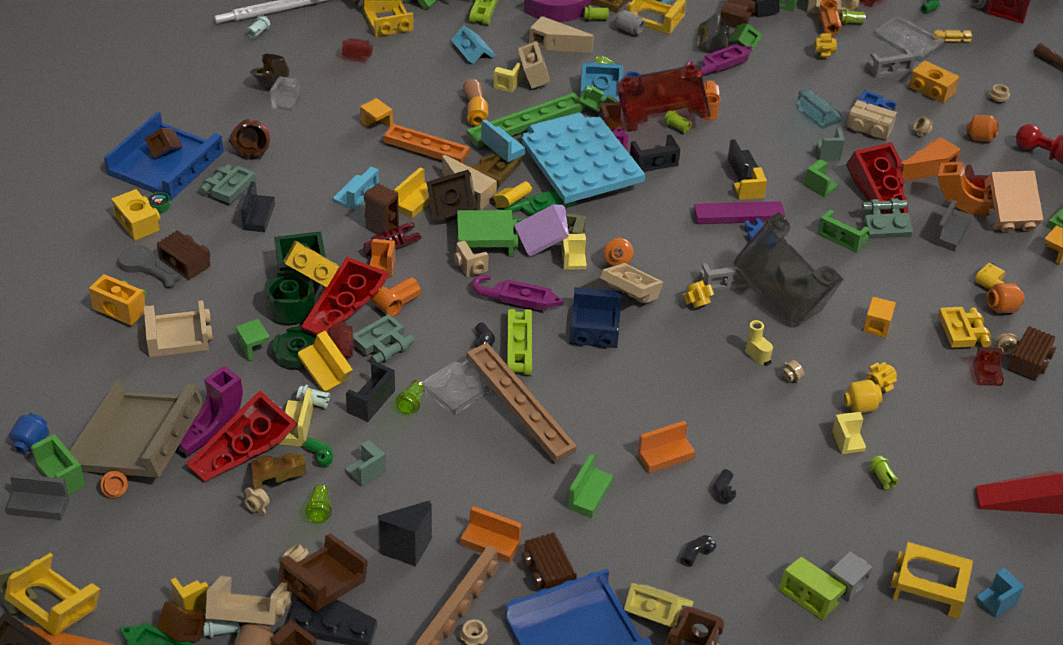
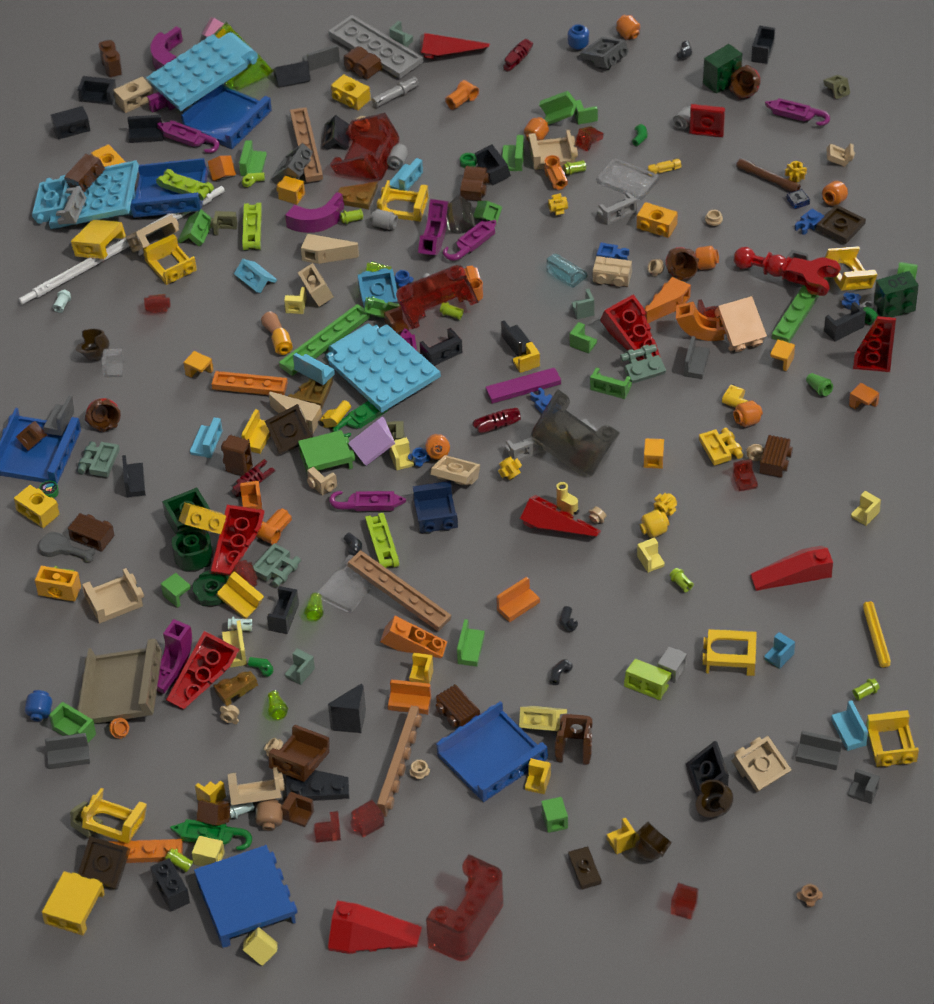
camera: 10 degrees left, 5 degrees up
(202, 131) = (59, 417): none -> dark grey panel
(517, 463) = (412, 639): none -> orange slope
(519, 503) = (422, 668): none -> yellow panel
(594, 259) = (419, 456): none -> blue plate
(684, 39) = (435, 229): none -> magenta arch
(698, 240) = (497, 420): none -> dark red hinge
(727, 355) = (544, 515): none -> red wedge
(954, 126) = (681, 263): none -> reddish brown hair

